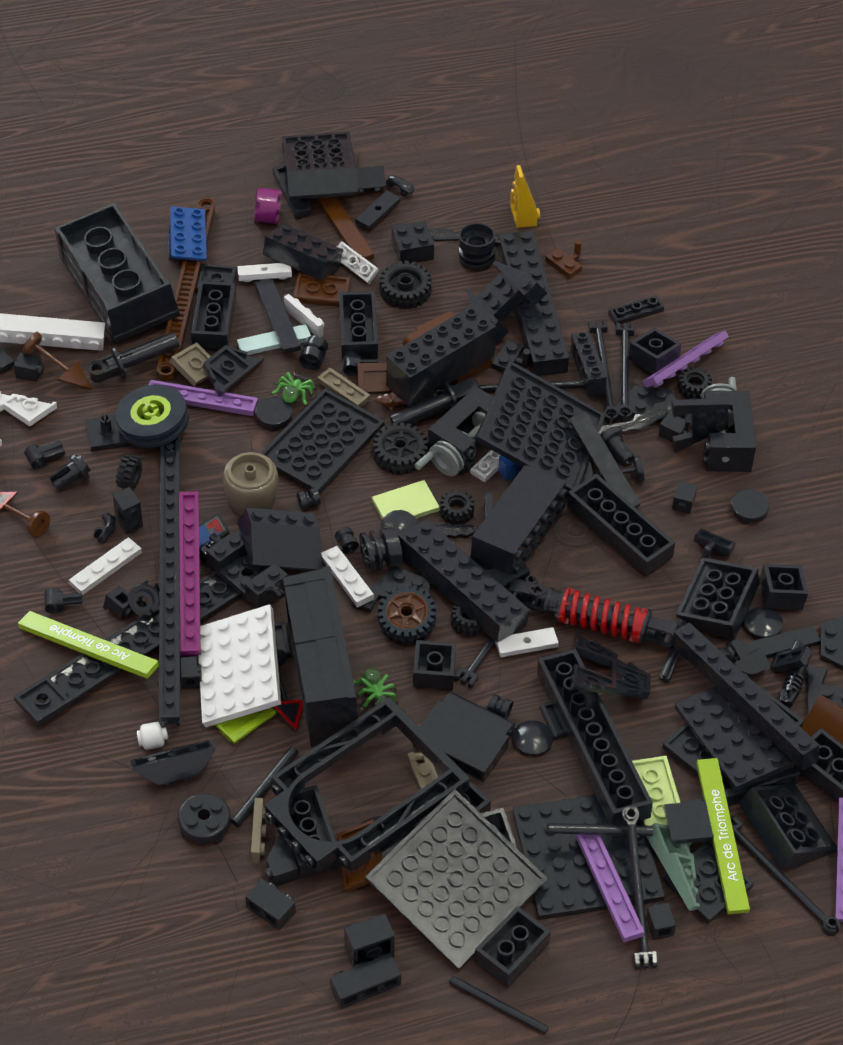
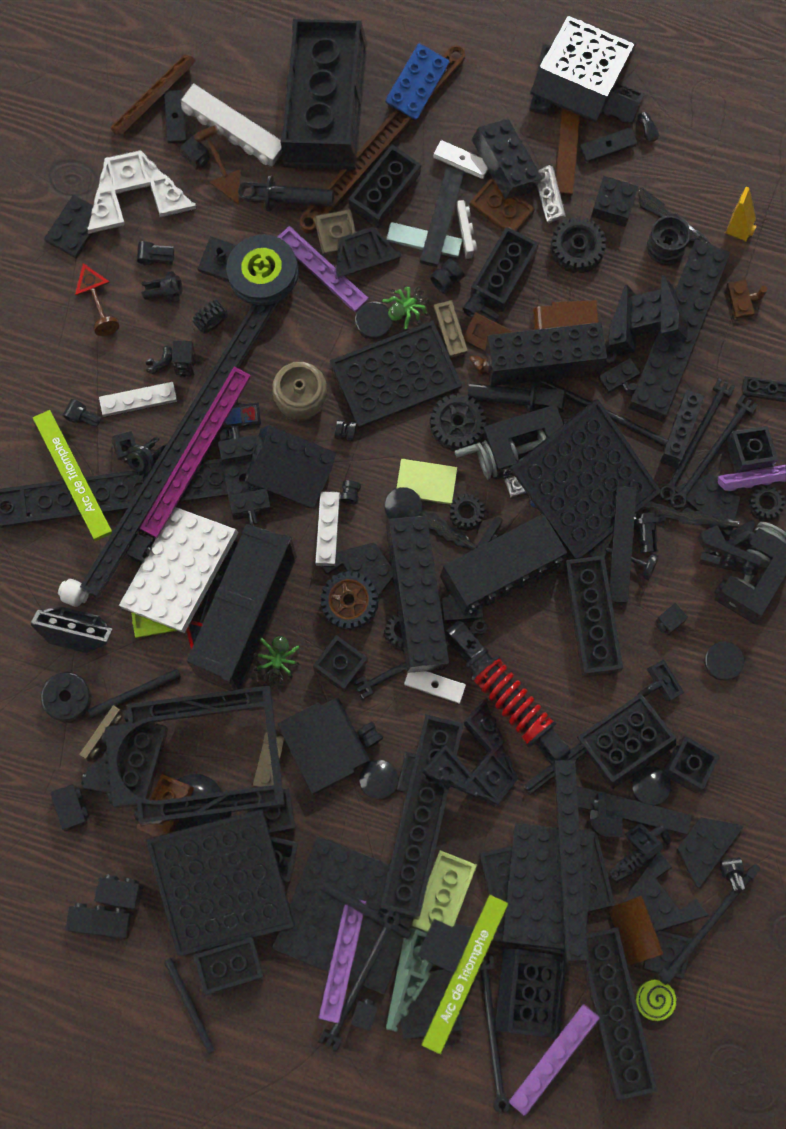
camera: 30 degrees right, 25 degrees up
(216, 273) = (417, 142): black tile -> none
(267, 206) = (508, 87): magenta brick -> none
(376, 549) = (368, 521): black wheel -> none

